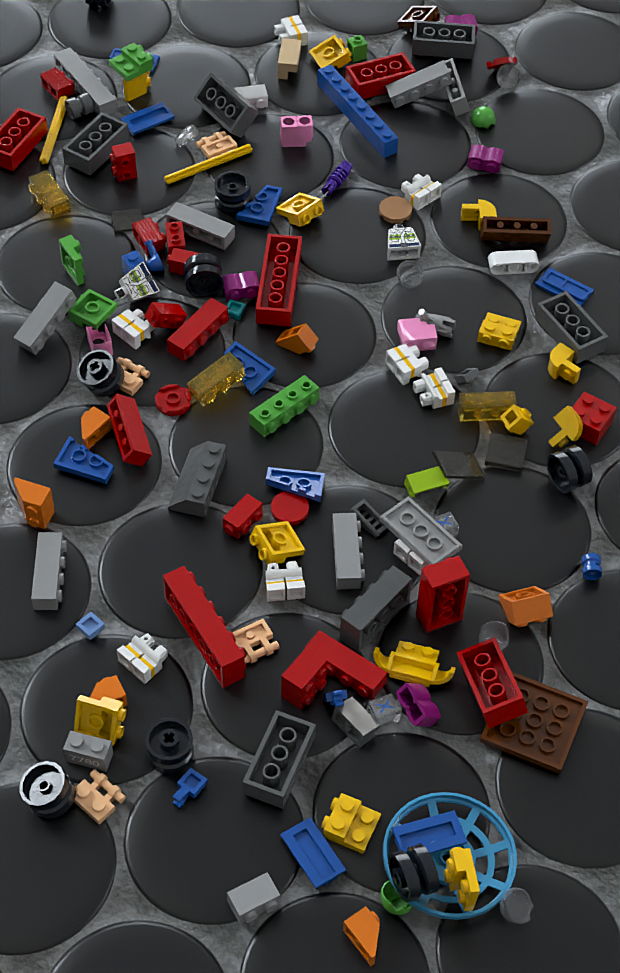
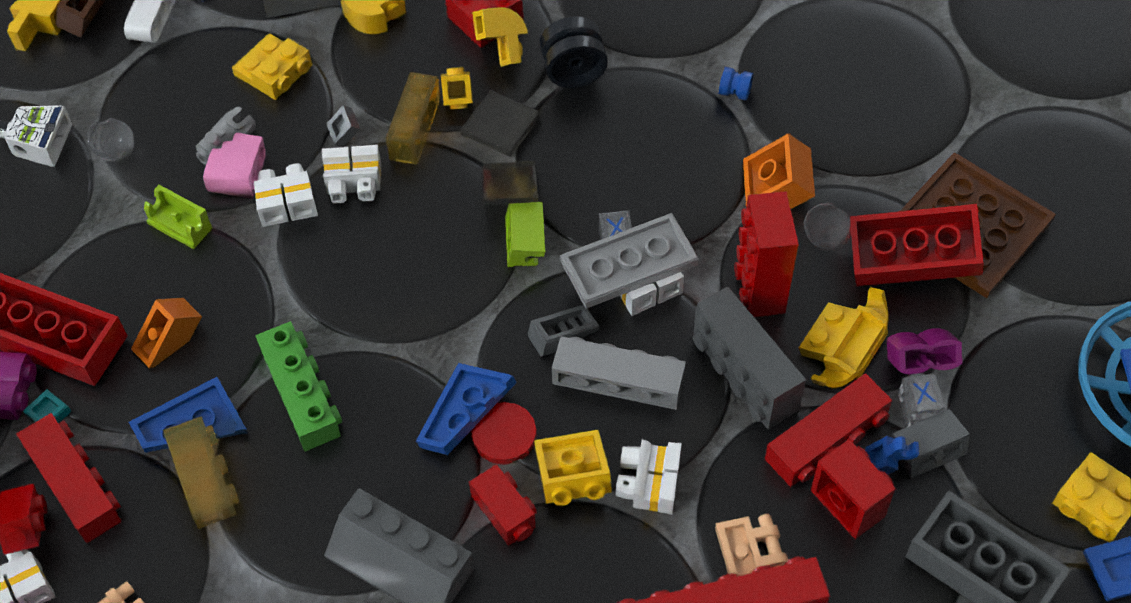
camera: 70 degrees left, 5 degrees up
(173, 400) = (204, 558): red tile -> none
(372, 322) = (177, 217): none -> lime hinge

